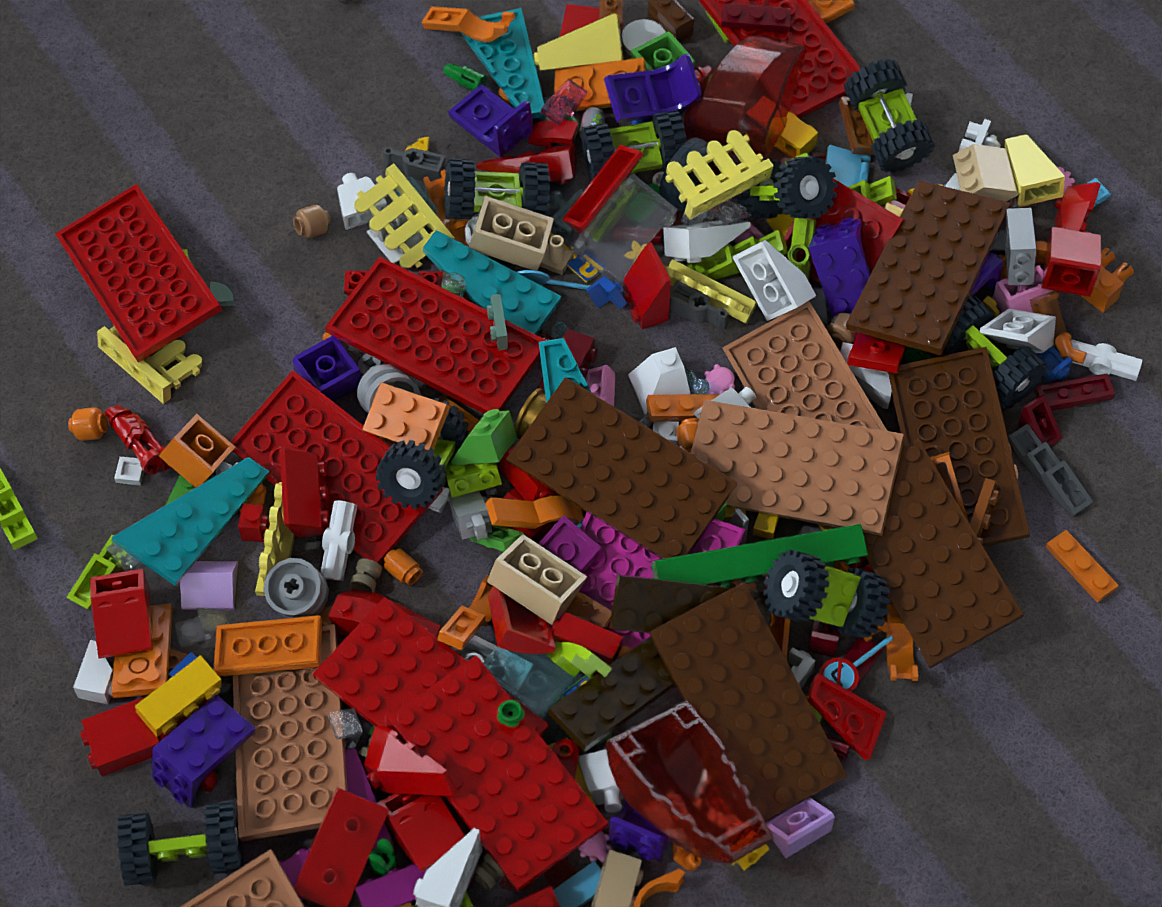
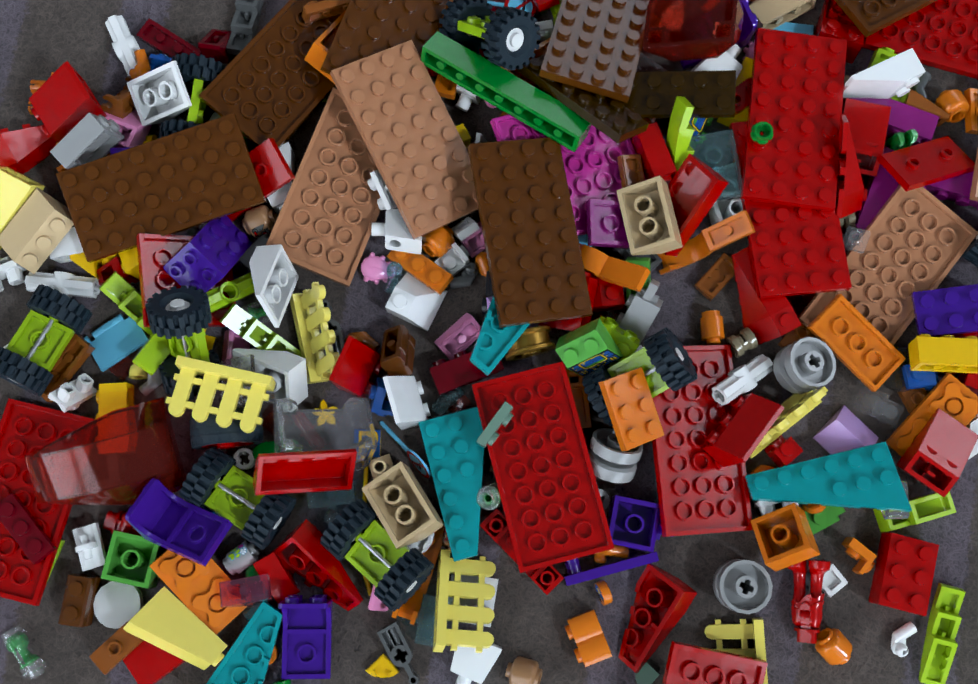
camera: 135 degrees left, 20 degrees up
(36, 475) = (899, 637): none -> white arm
(73, 516) = (903, 573): none -> red brick
(123, 505) = (858, 551): none -> orange bracket
(200, 394) = (756, 588): none -> light grey wheel
(250, 337) = (656, 610): none -> red wedge
(286, 280) = (588, 637): none -> orange brick
(304, 315) = (603, 592): none -> orange tile
(315, 330) = (576, 575): none -> dark purple piece
(437, 604) = (716, 277): none -> dark orange plate
(586, 297) = (406, 400): none -> white slope
(629, 327) = (397, 351): none -> reddish brown brick
(671, 325) = (364, 338): none -> dark orange arm
(702, 47) = (89, 546): none -> white hips
(828, 114) = (74, 393): none -> white hips
(928, 169) = (64, 283): none -> white piece

